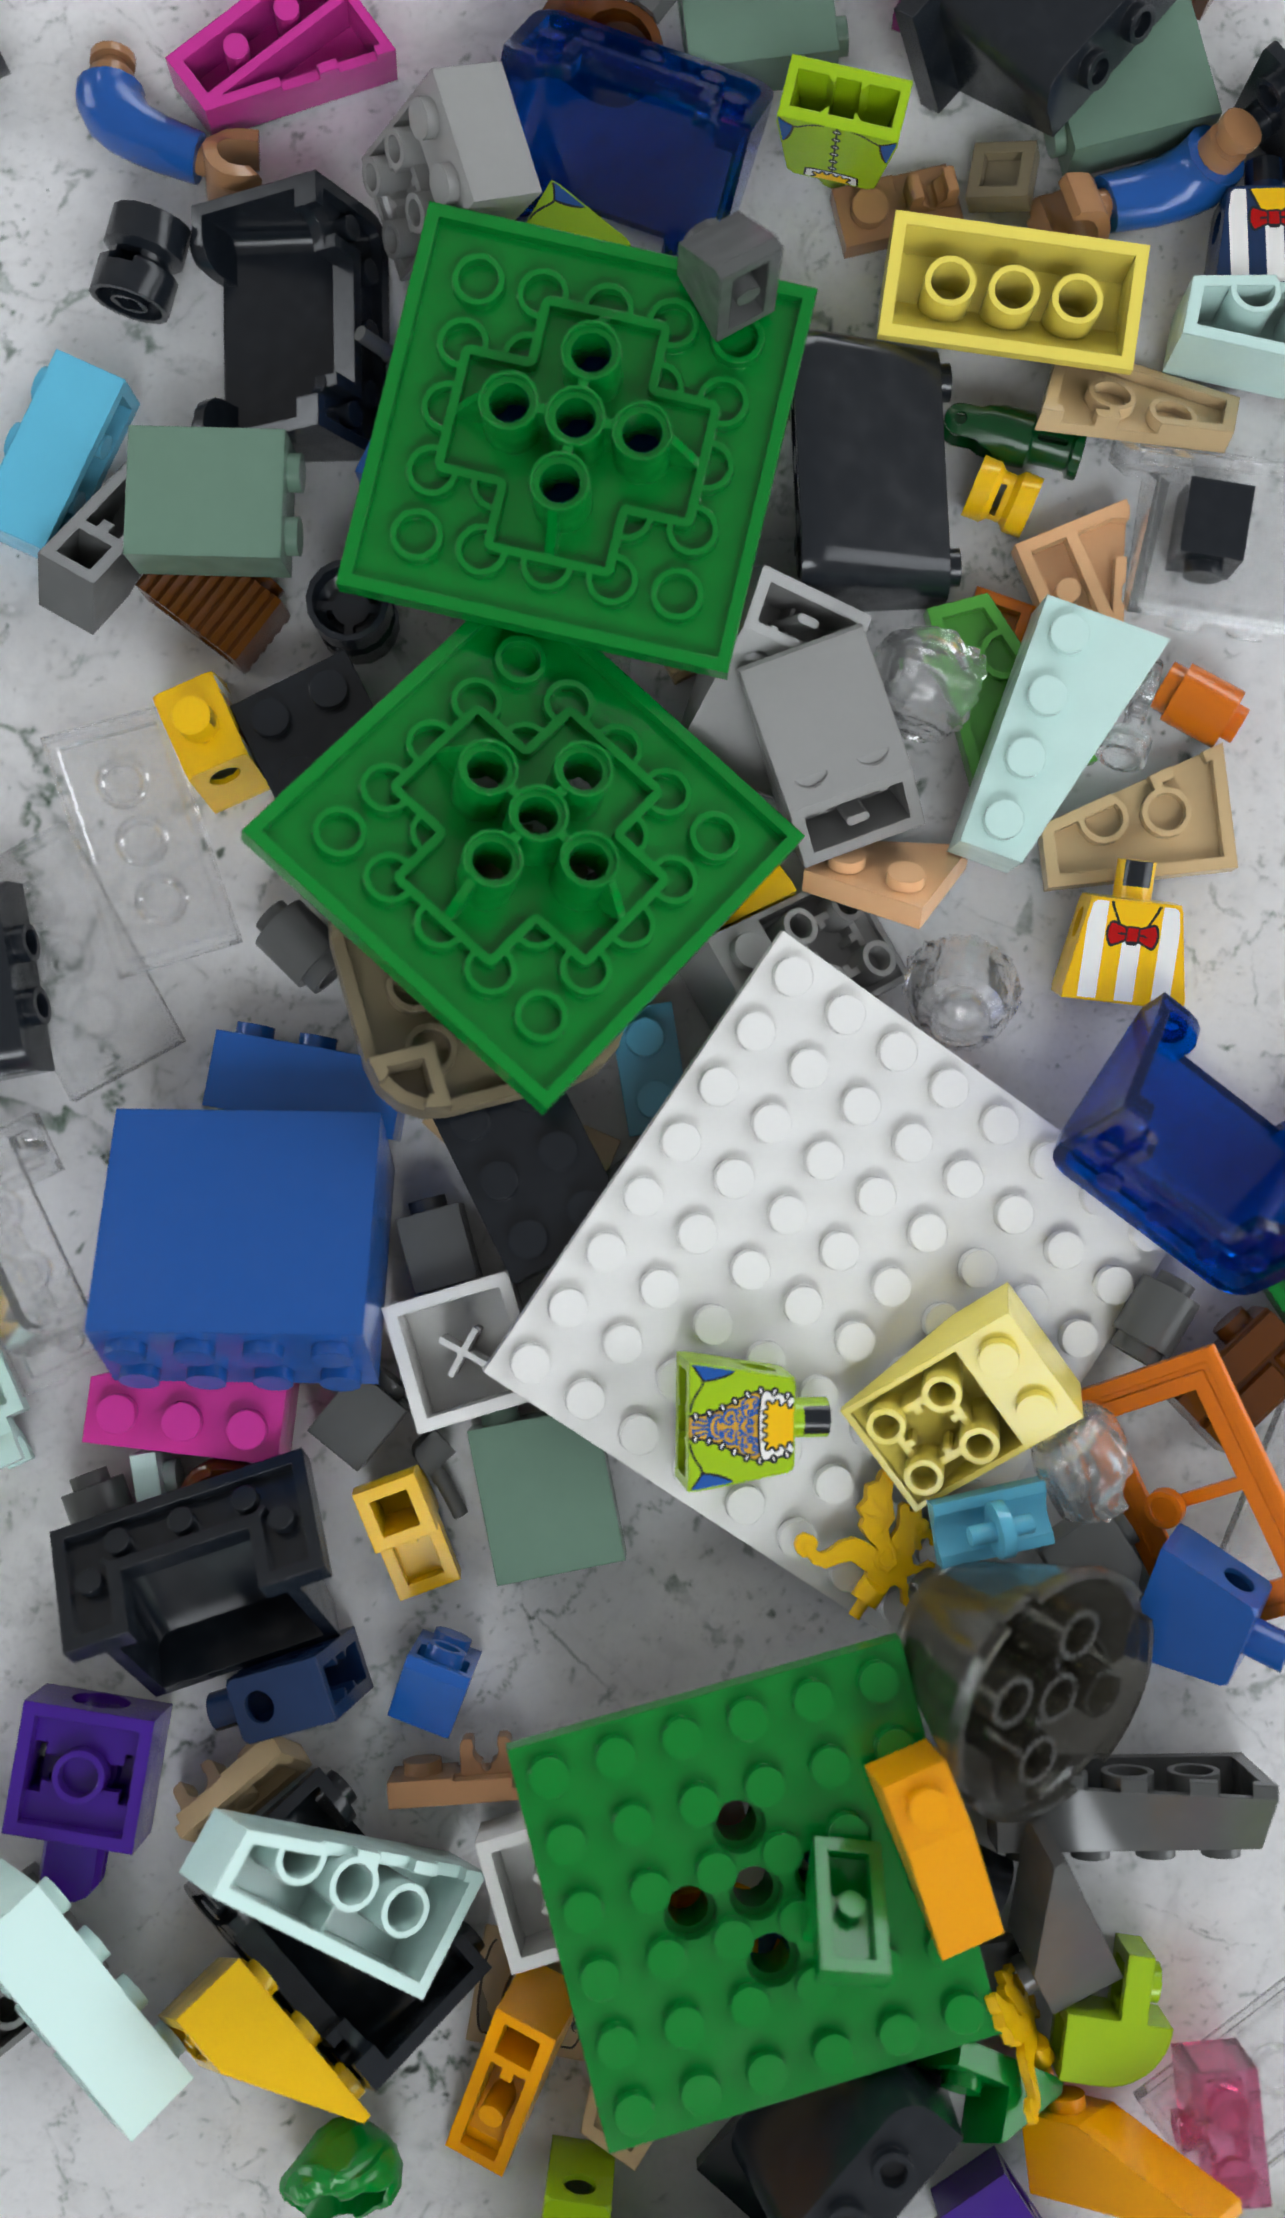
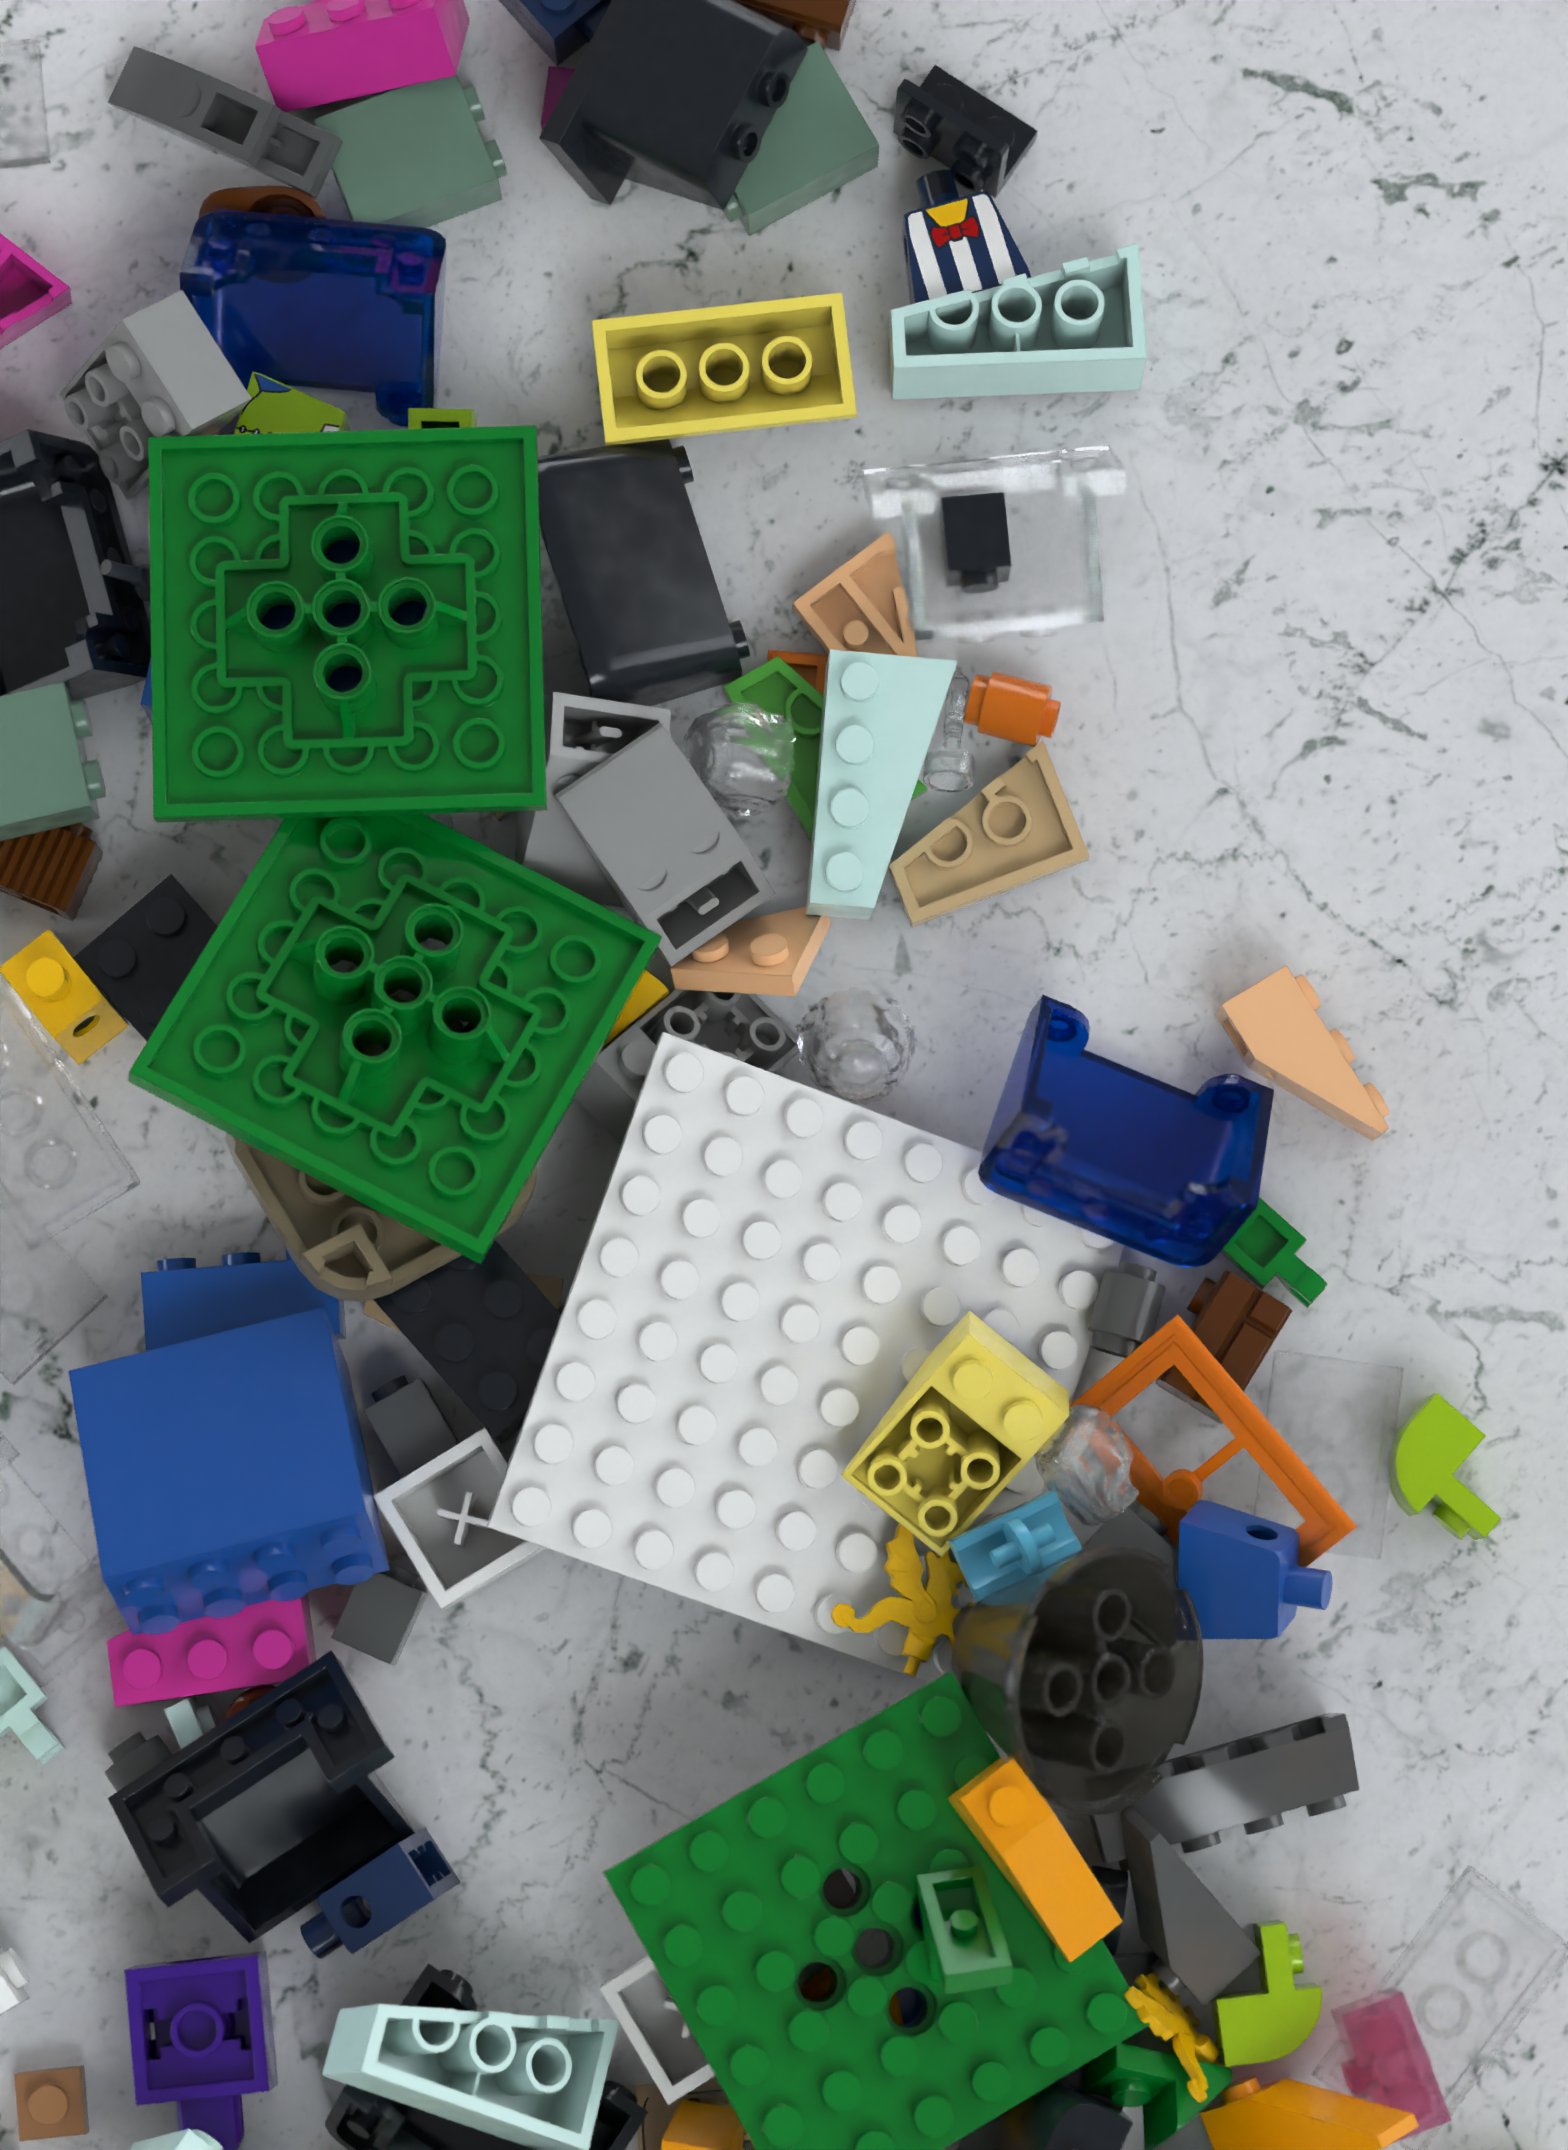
camera: 25 degrees left, 5 degrees down
(244, 1786) = (370, 1980): tan plate -> none
(297, 944) = (198, 1170): dark grey brick -> none
(350, 621) = (167, 846): black wheel -> none
(407, 1531) = (455, 1713): yellow brick -> none
(430, 1783) = (538, 1952): medium nougat plate -> none
(431, 1453) = (456, 1635): dark grey hand -> none
(435, 1680) = (519, 1851): blue slope -> none
(543, 1497) = (578, 1640): sand green brick -> none
(648, 1064) = (568, 1194): medium azure plate -> none
(730, 272) = (448, 437): dark grey slope -> none
(739, 1420) = (744, 1507): torso -> none
(840, 121) = (516, 251): lime torso -> none
(867, 215) = (608, 292): medium nougat plate -> none
(1002, 176) = (687, 253): dark tan plate -> none
(1011, 437) = (767, 498): dark green piece -> none
(1015, 502) = (782, 563): yellow wheel -> none
(1124, 943) = (998, 957): torso -> none
(1137, 408) = (879, 443): tan wing -> none
(1155, 191) = (831, 234): piece -> none

